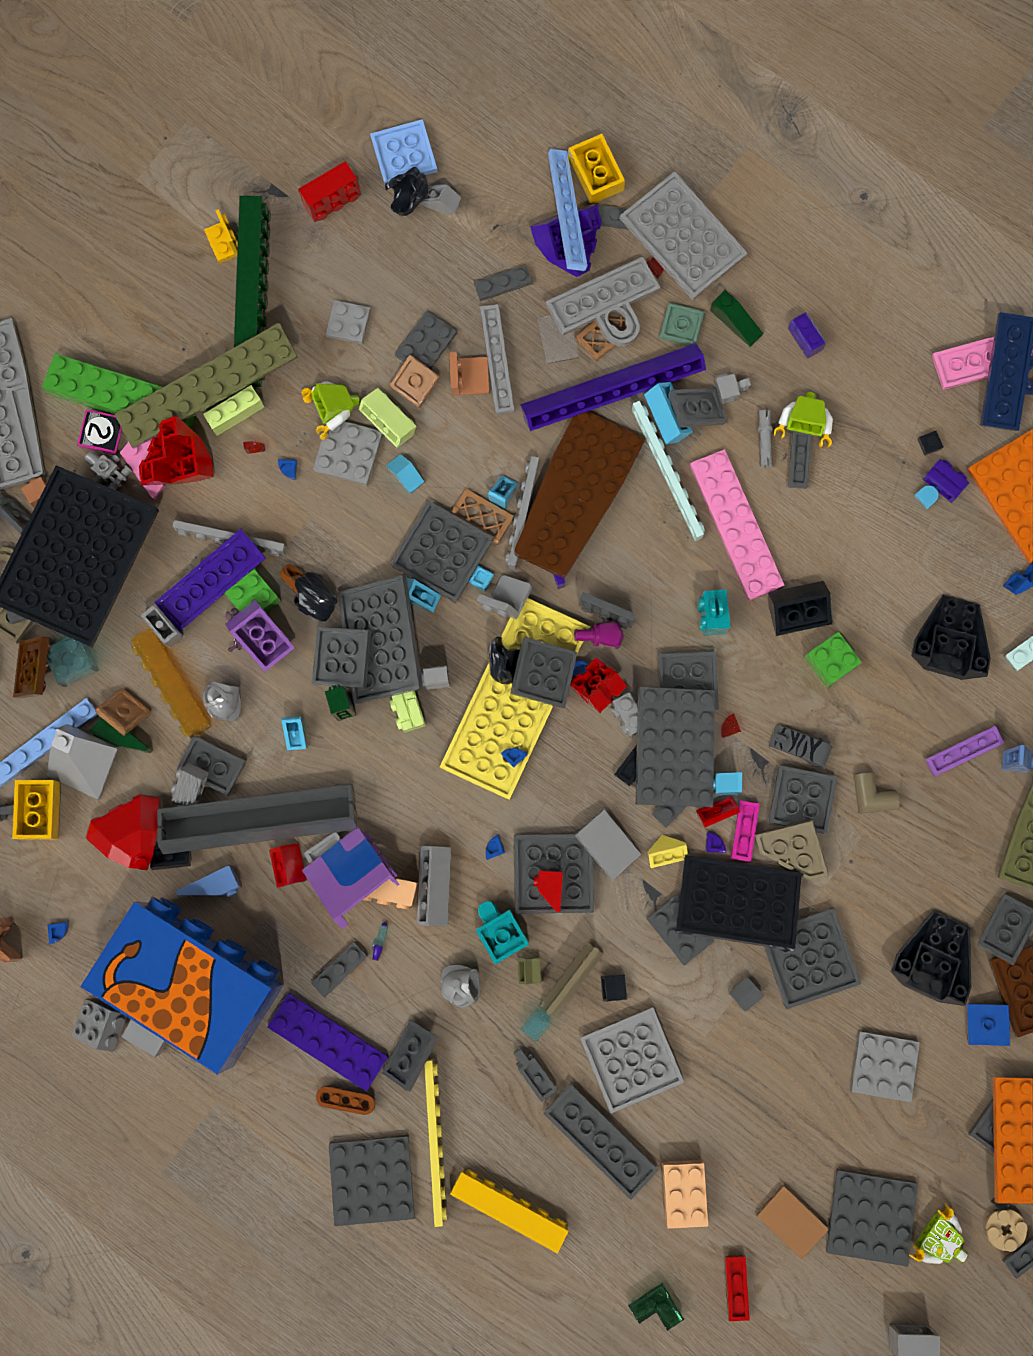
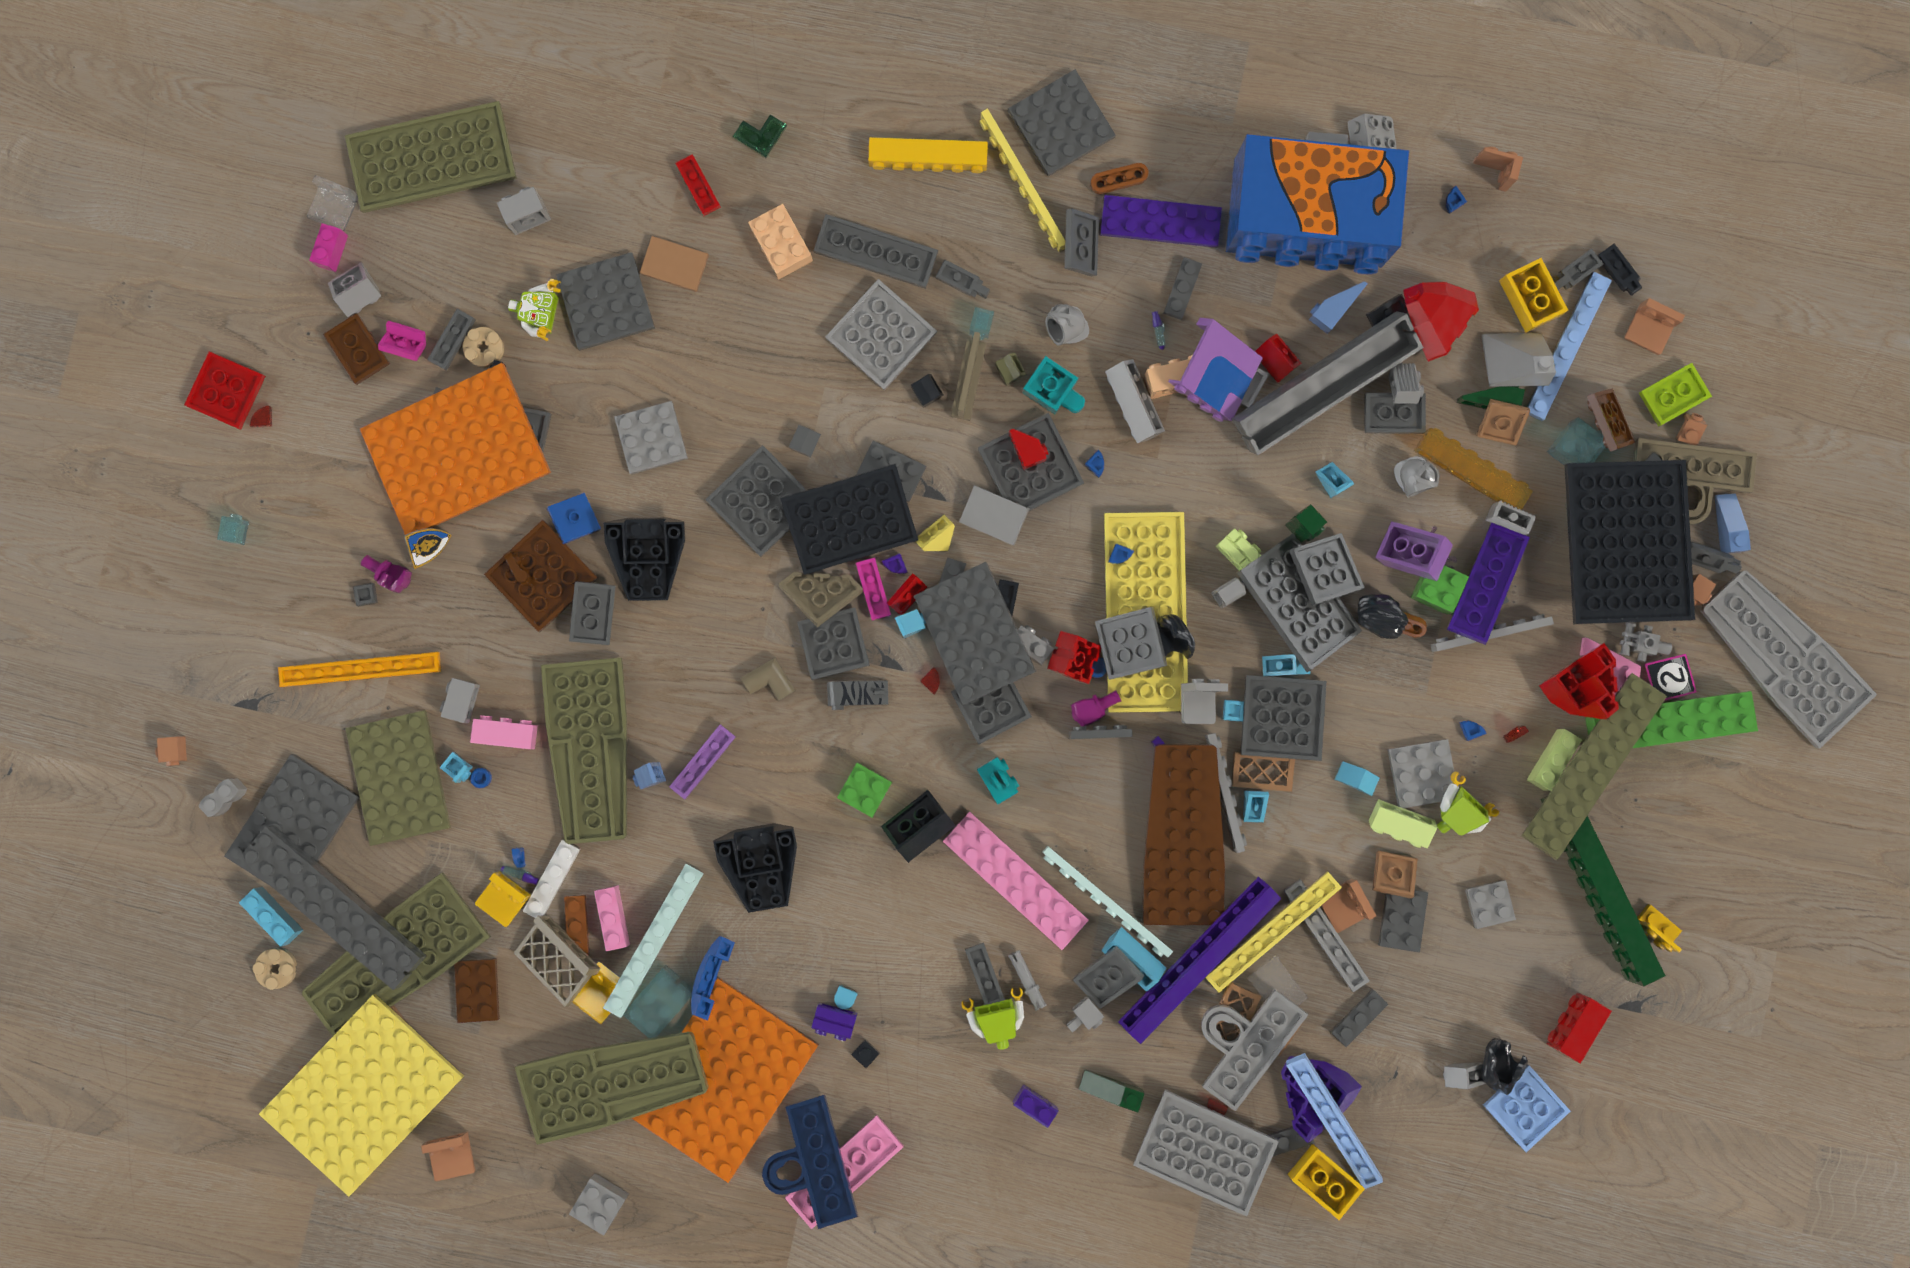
camera: 145 degrees right, 5 degrees up
(539, 381) = (1273, 931): none -> light yellow plate
(681, 324) = (1162, 1059): sand green tile -> none

